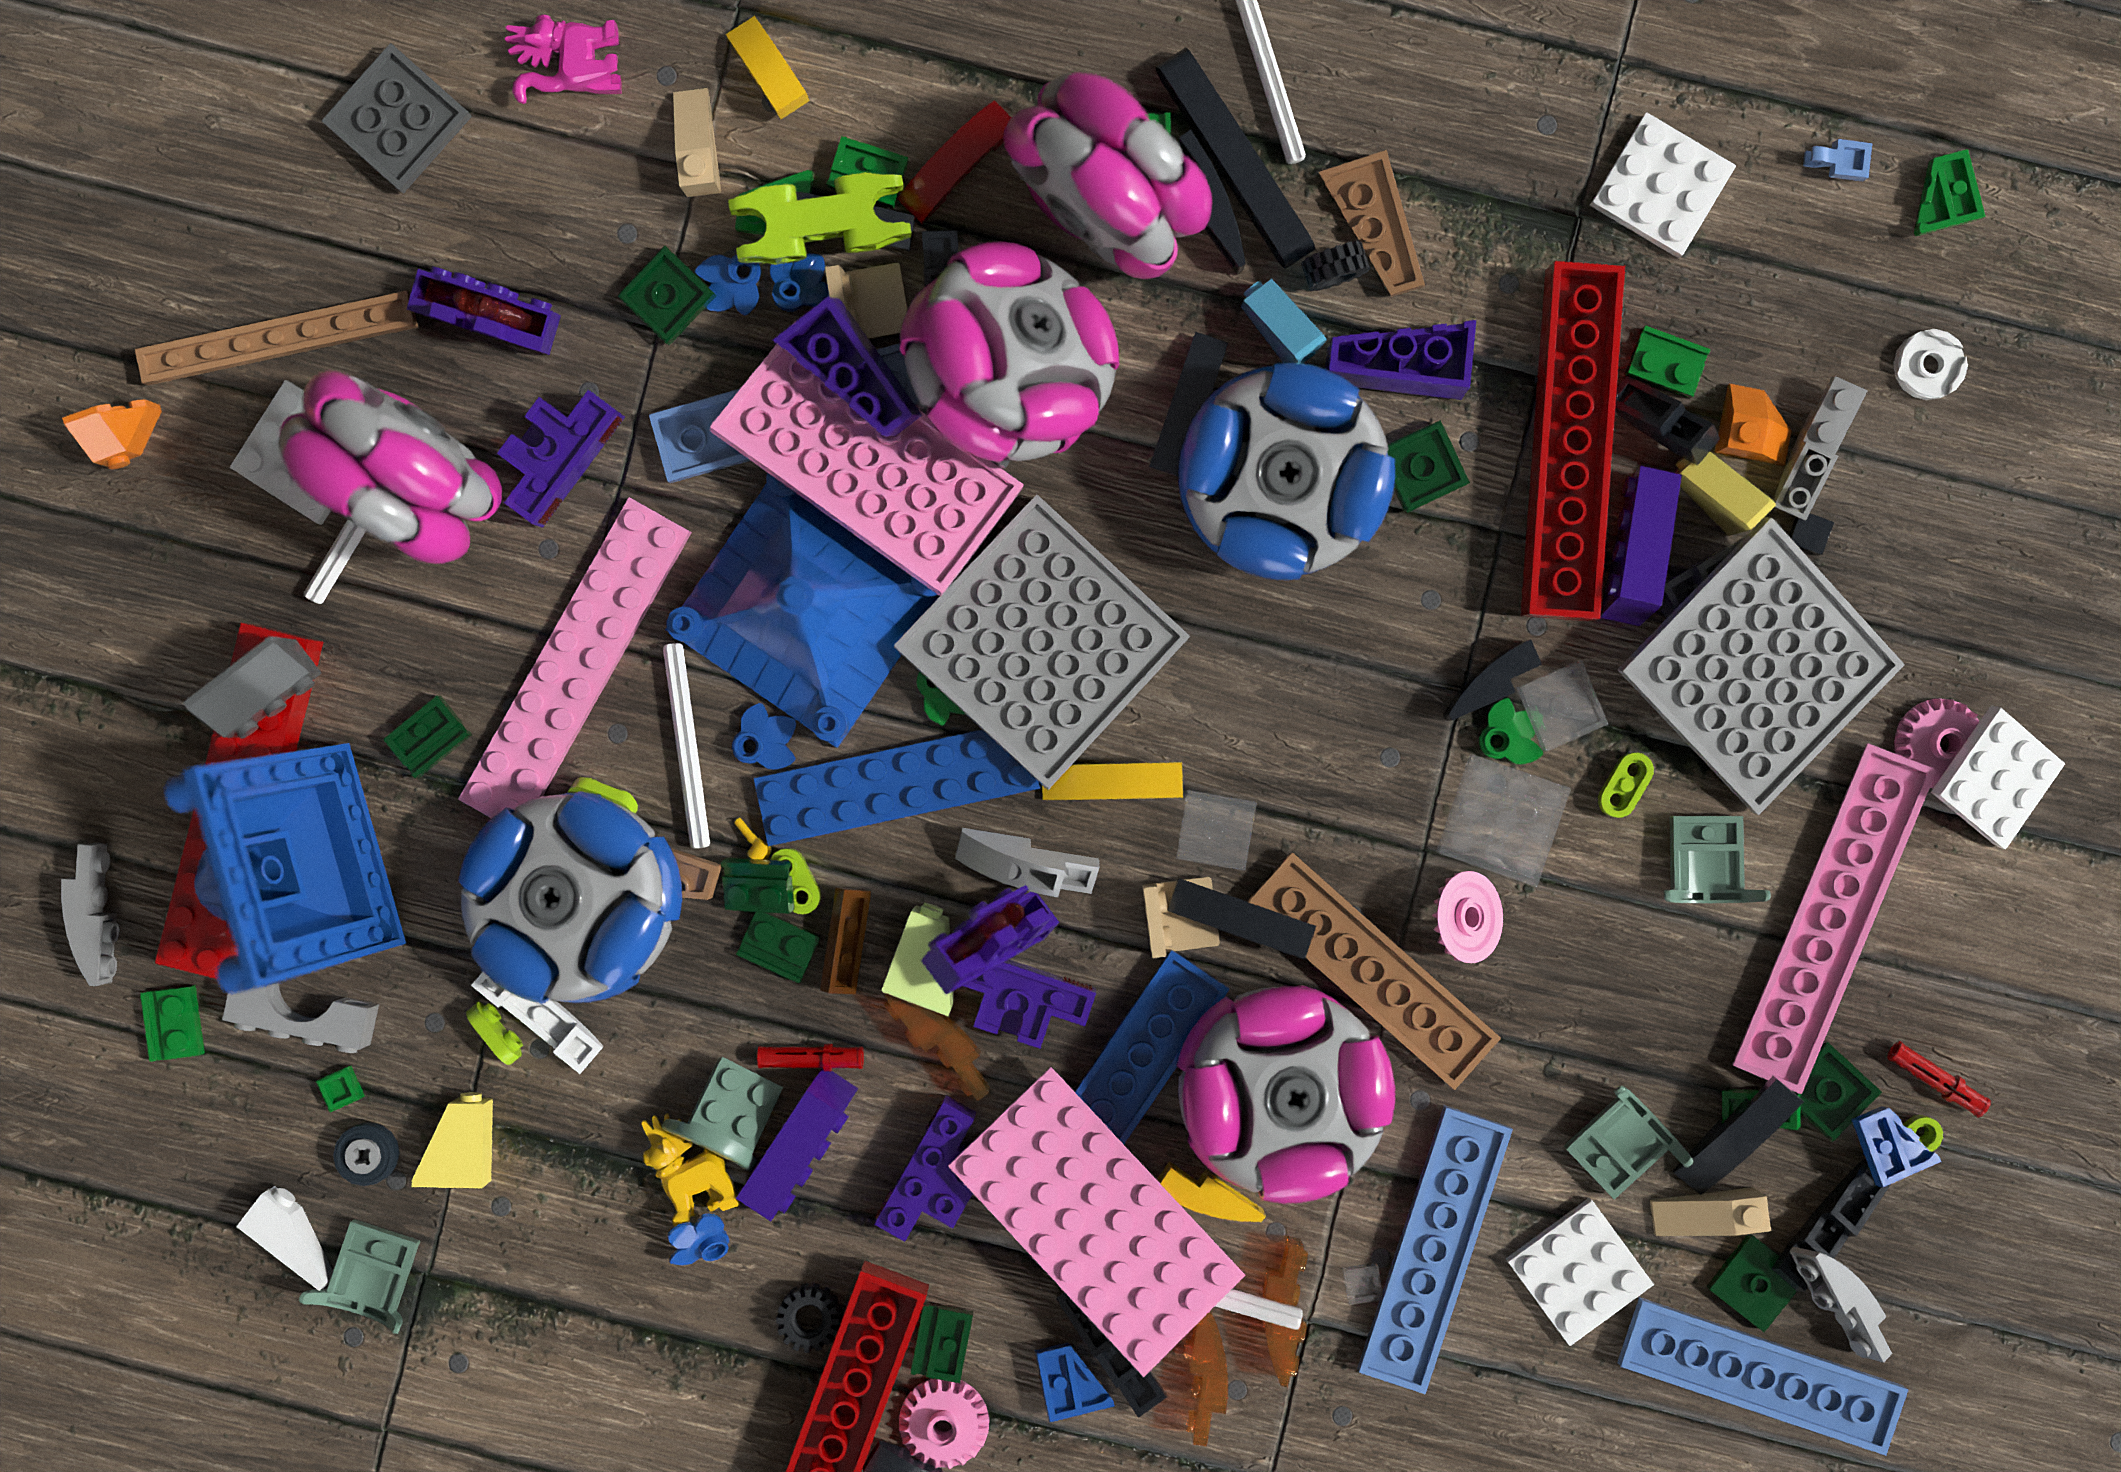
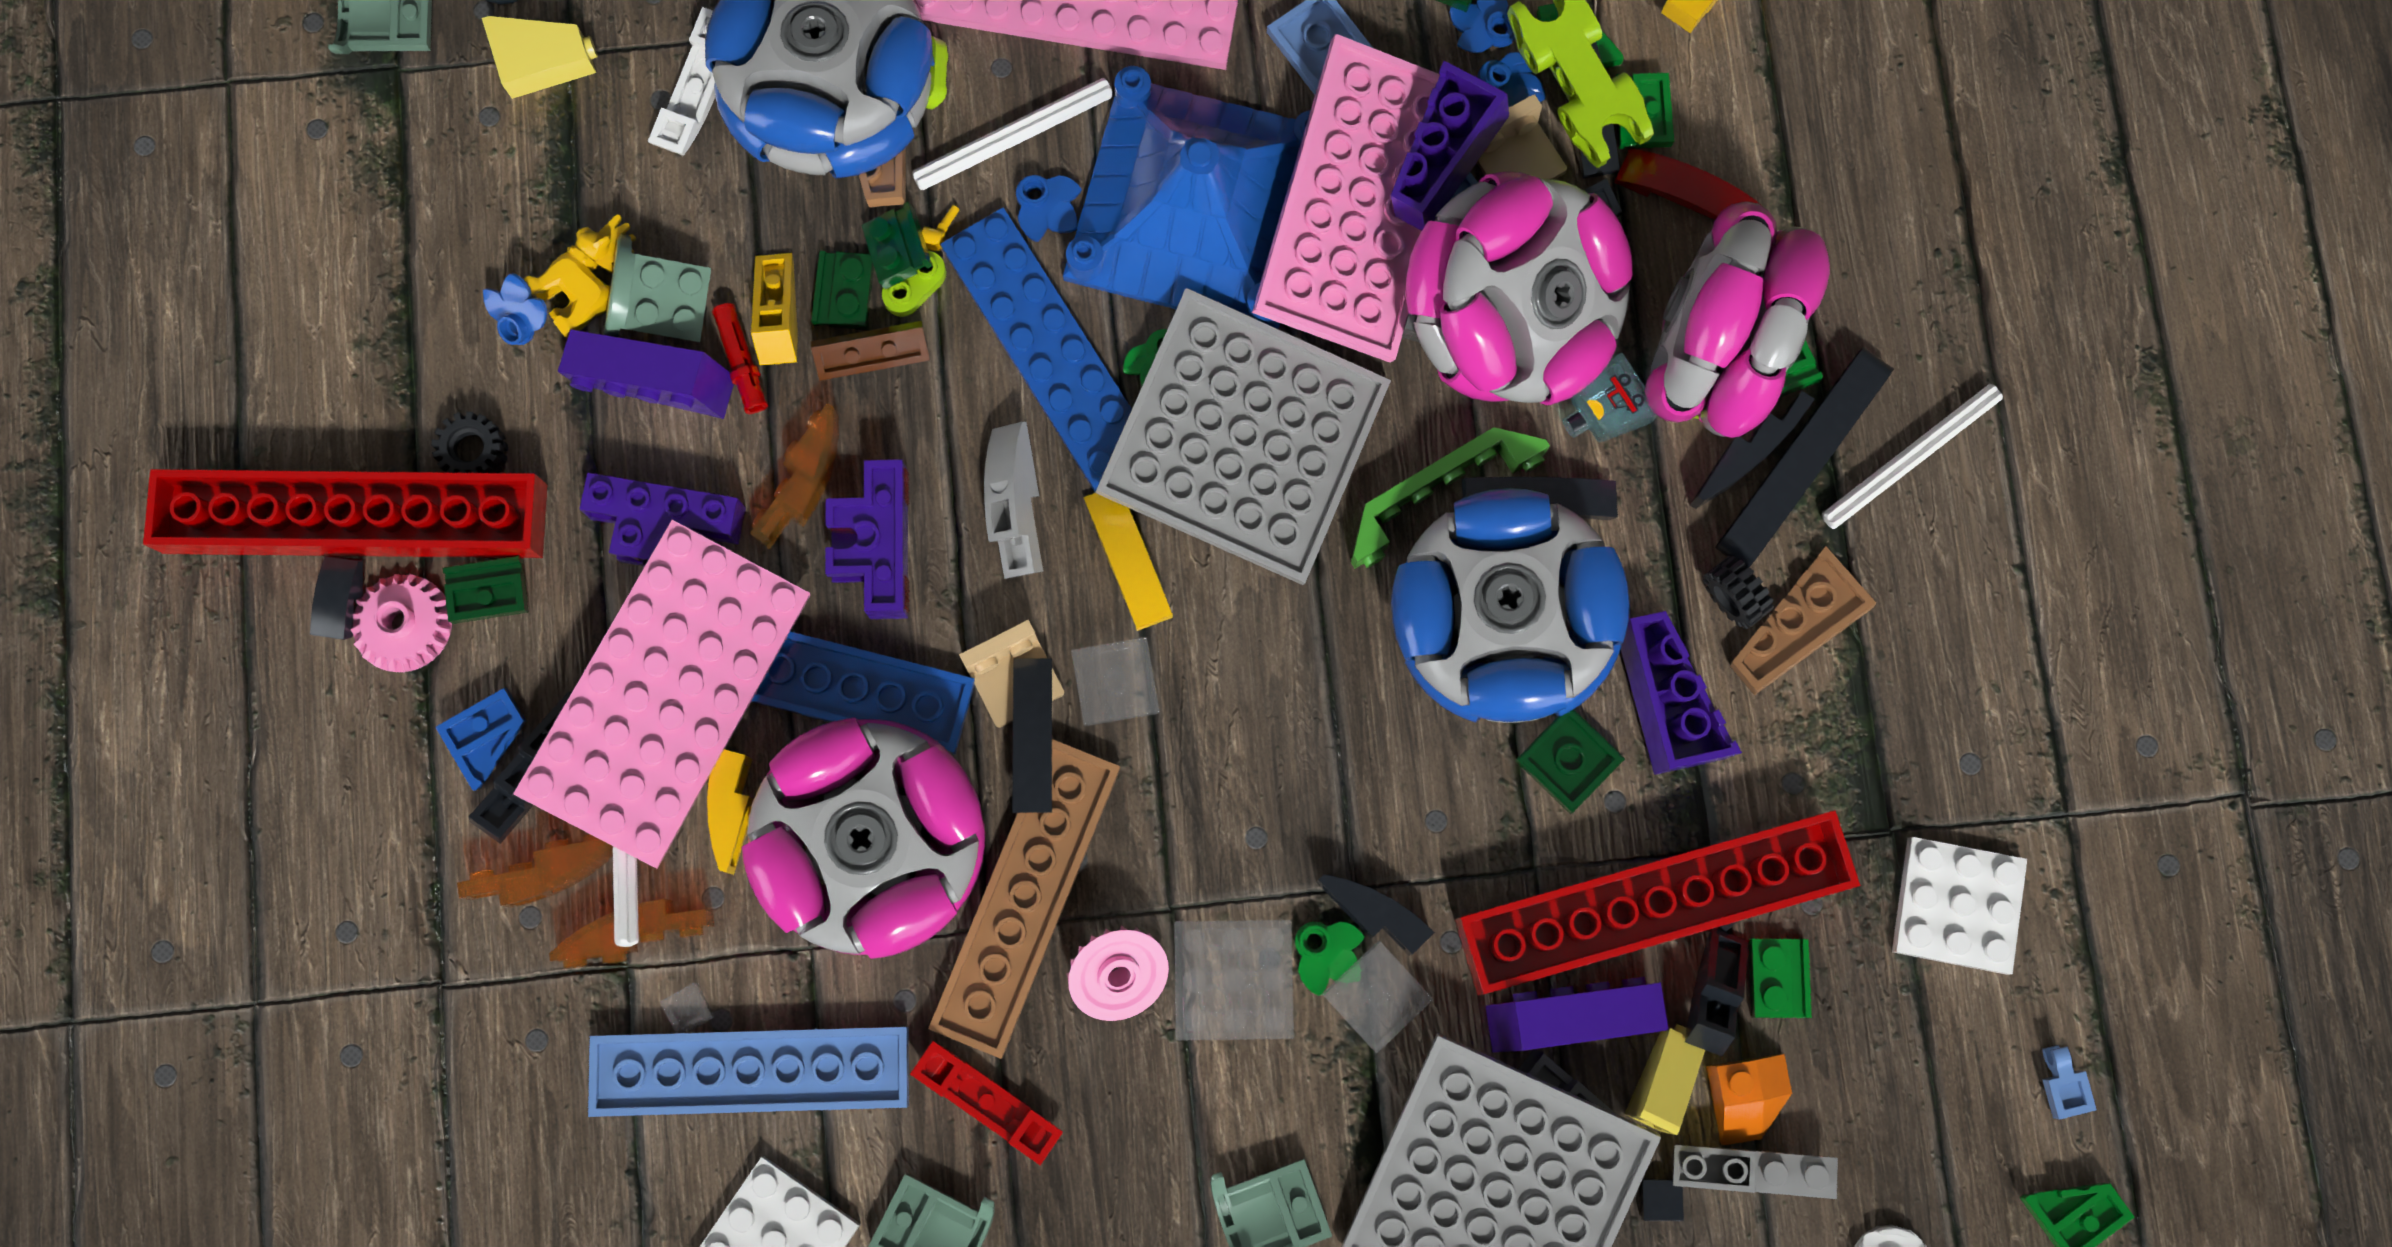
camera: 70 degrees right, 10 degrees down
(486, 1022) = (660, 49): lime plate -> none
(777, 1012) = (774, 309): none -> yellow slope
(907, 974) = (876, 428): yellowish green slope -> none
(989, 937) = (923, 478): dark purple piece -> none
(1129, 307) = (1610, 404): none -> clear light blue torso
(1140, 408) = (1515, 448): none -> bright green slope
(1282, 323) = (1659, 560): medium azure slope -> none
(1531, 1059) = (987, 1102): none -> red slope
(1626, 786) = (1318, 1096): lime plate -> none

